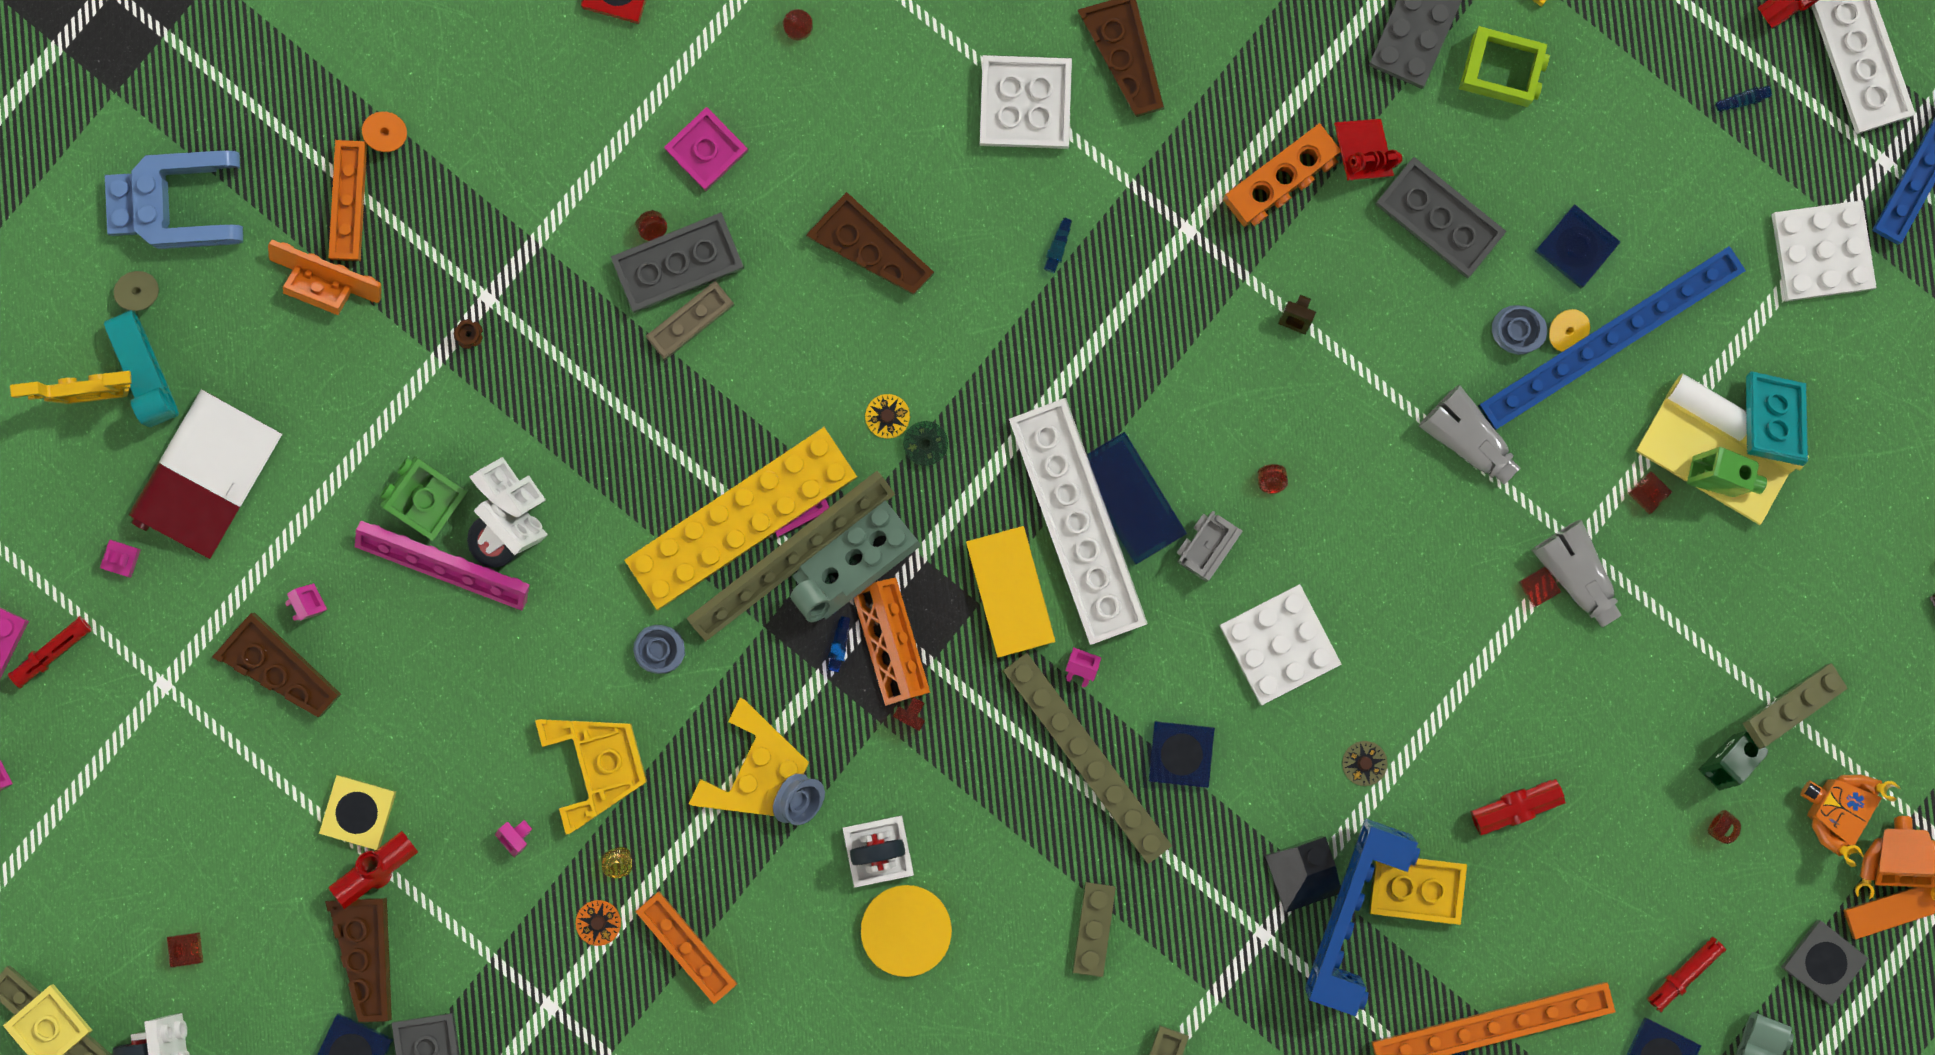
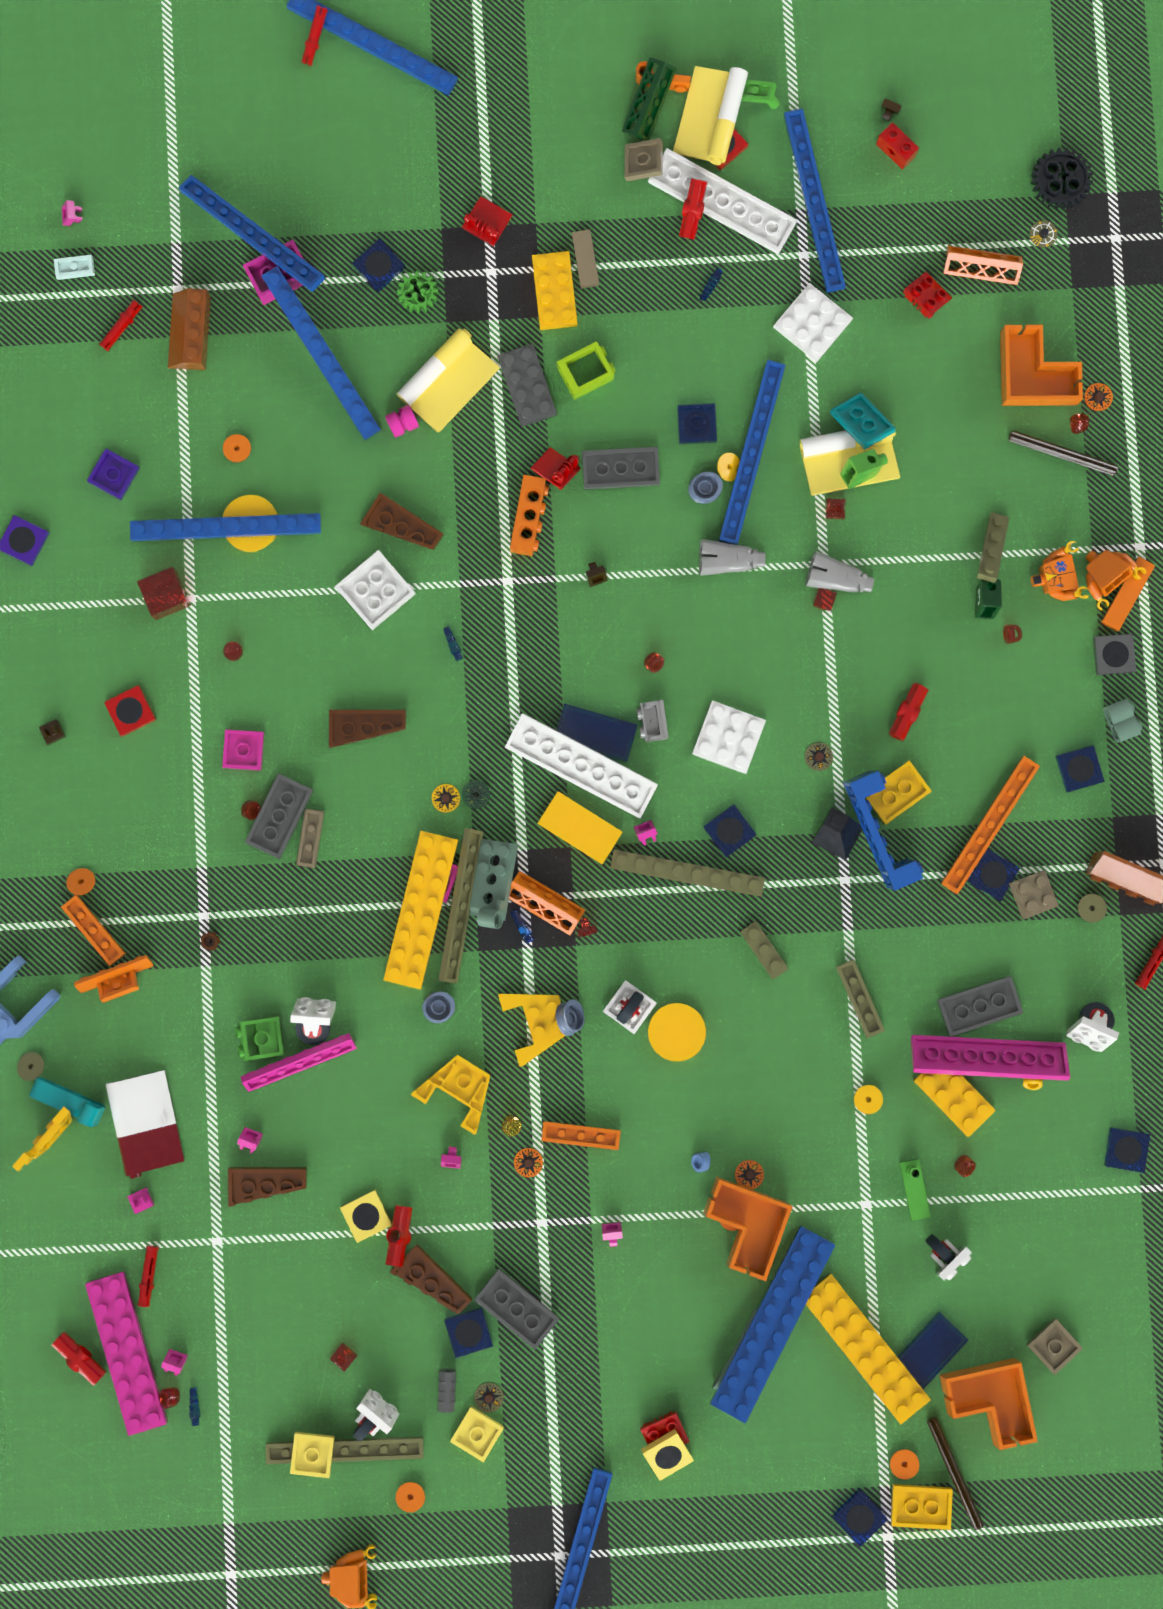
camera: 40 degrees left, 0 degrees up
(505, 490) = (296, 998): white slope -> none
(1685, 975) = (1056, 718): red pin -> none

